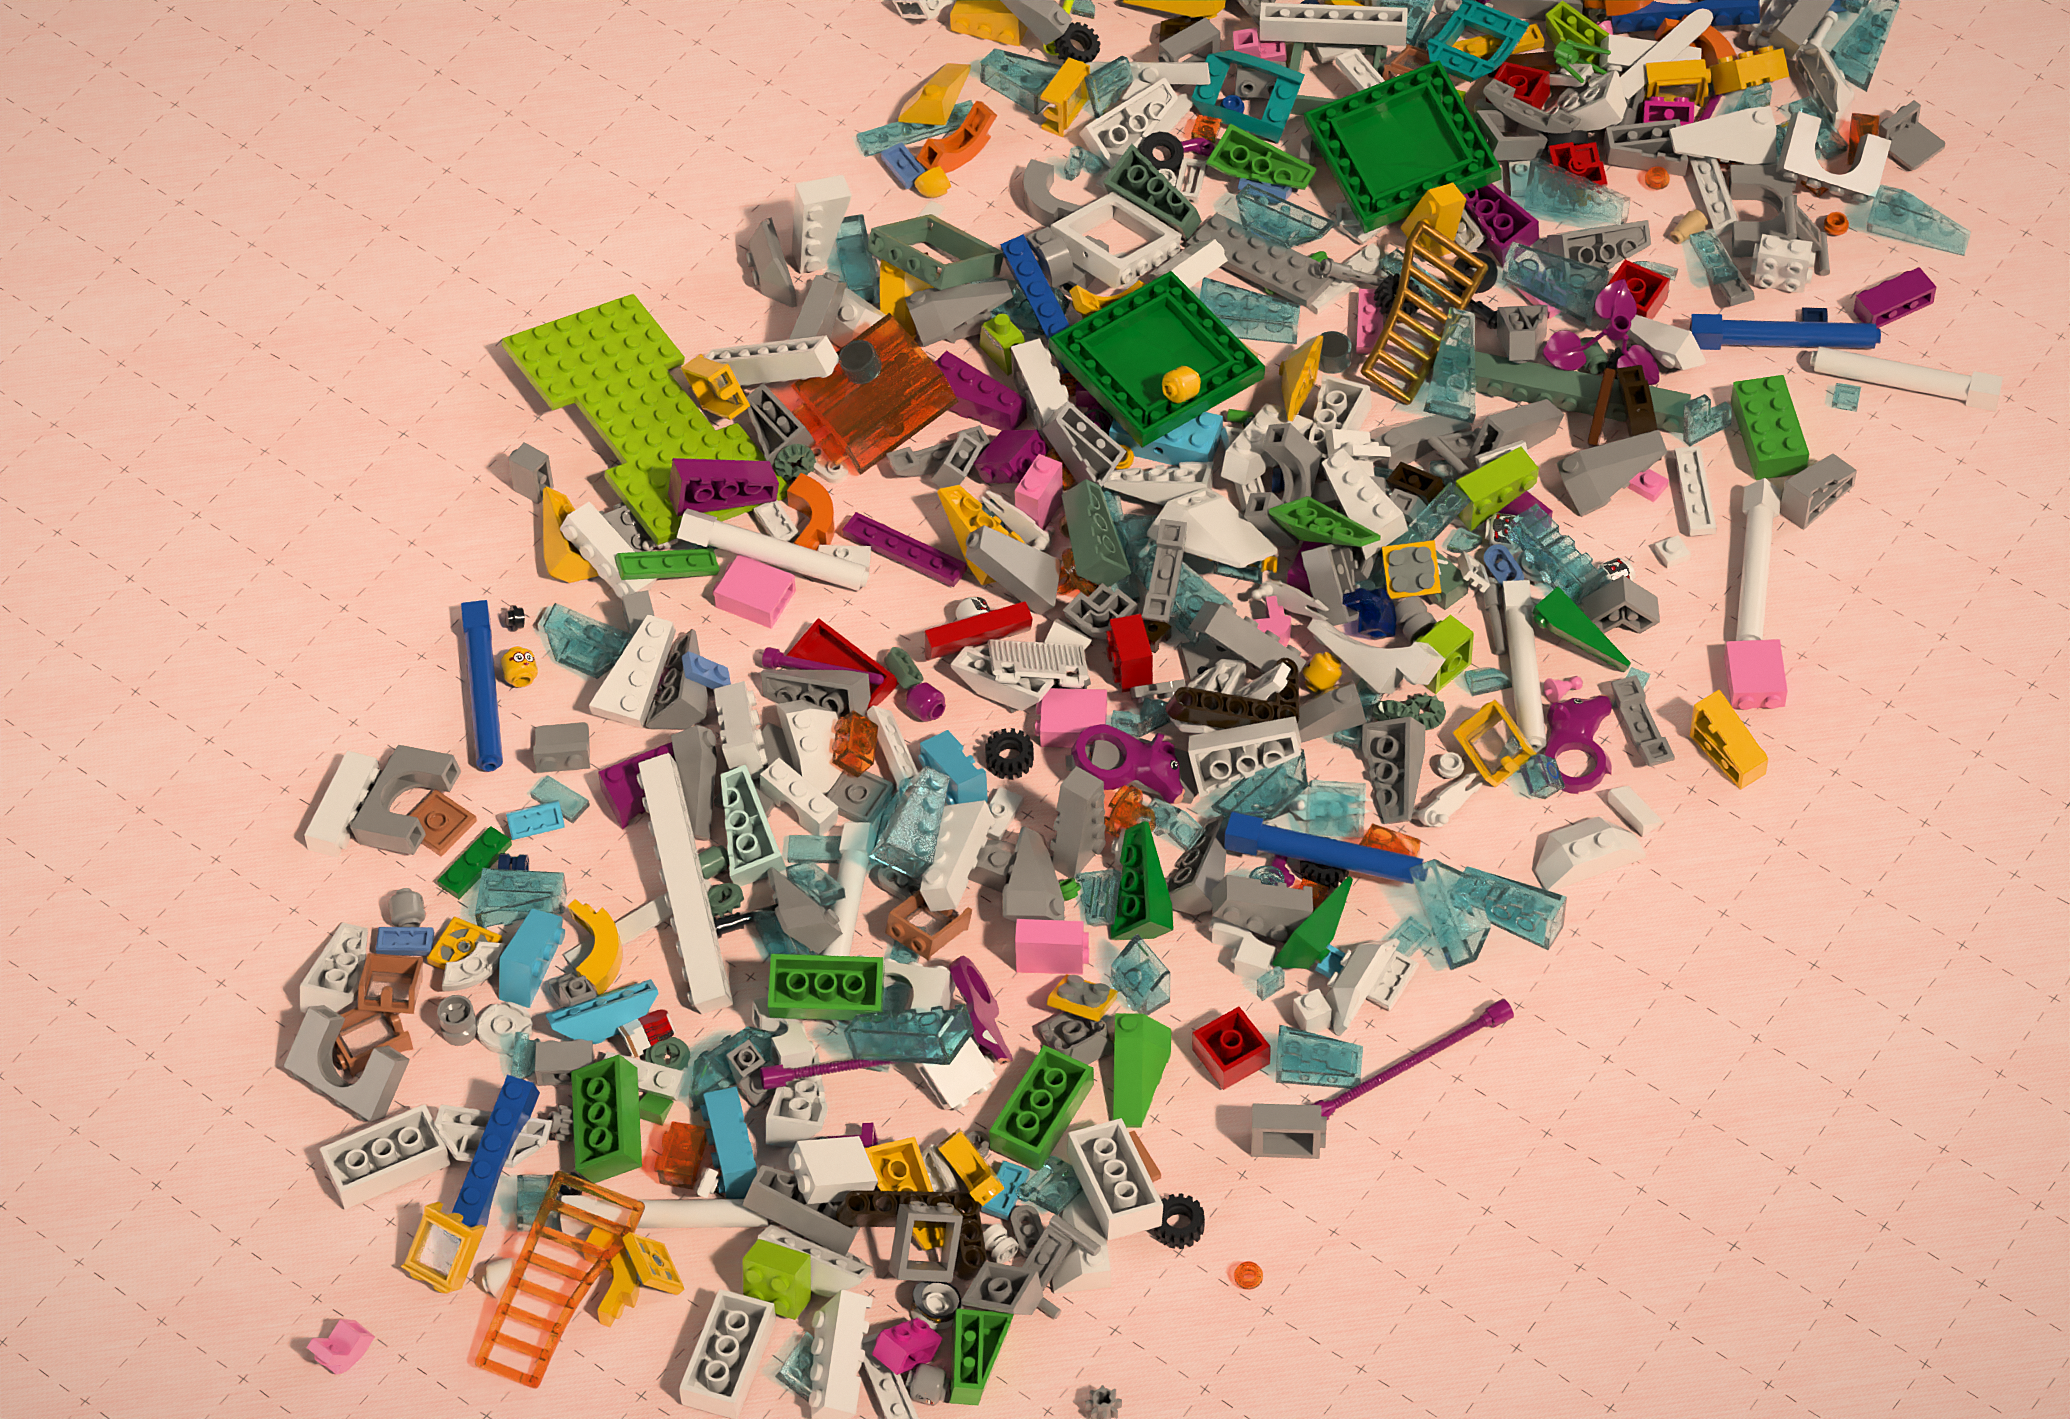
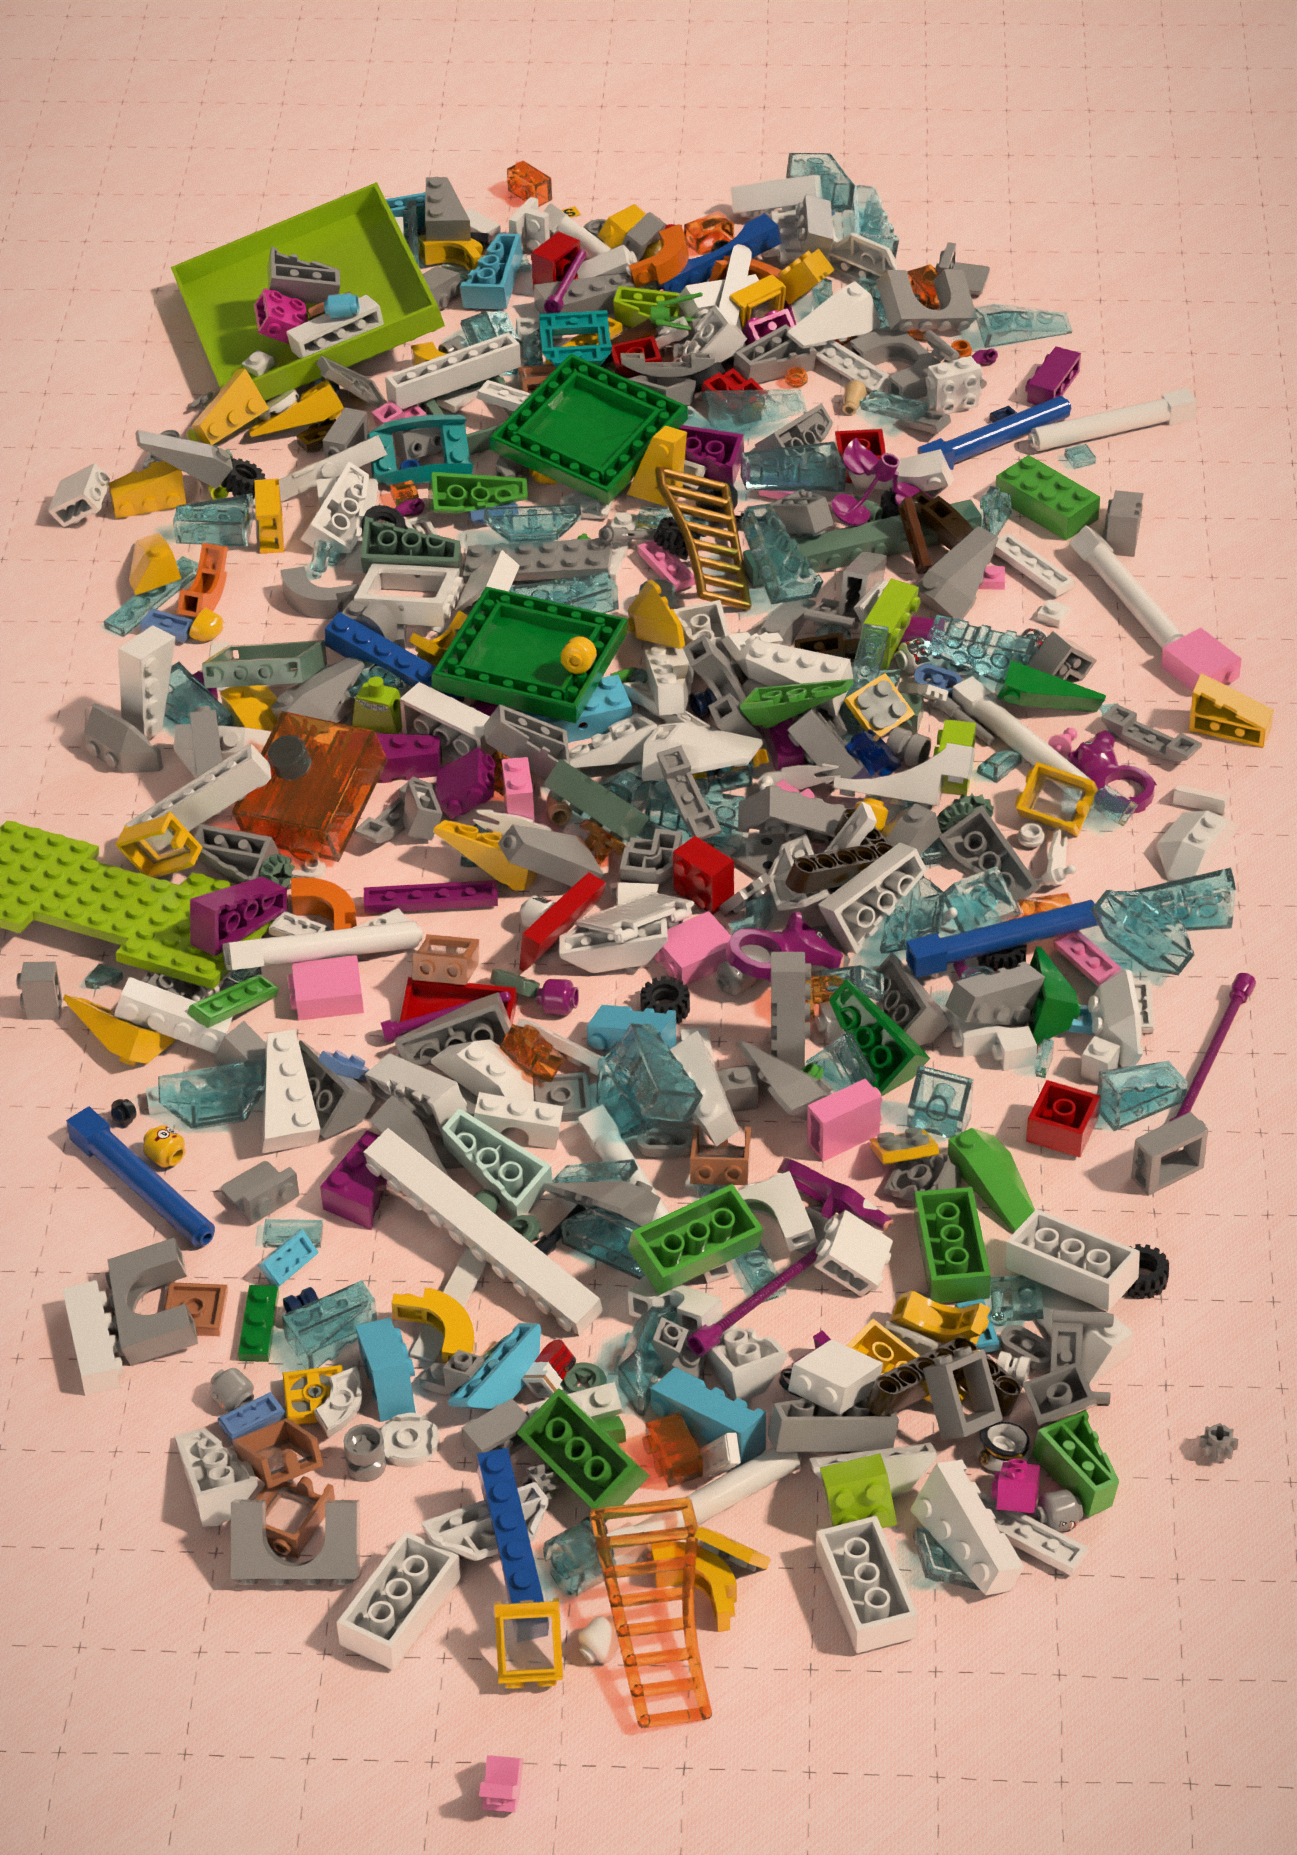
camera: 35 degrees left, 10 degrees down
(523, 1055) = (450, 1451): clear light blue brick -> none
(596, 483) = (102, 976): none -> clear light blue tile
(814, 847) = (567, 1152): clear light blue tile -> none
(860, 618) = (446, 959): none -> nougat window
(910, 1035) = (805, 1237): clear light blue wedge -> none
(1108, 83) = (297, 492): clear light blue wing -> none
(1248, 1268) = (1236, 1281): clear orange plate -> none
(1388, 909) = (1086, 956): none -> bright pink plate
(1848, 241) = (985, 357): none -> magenta arm

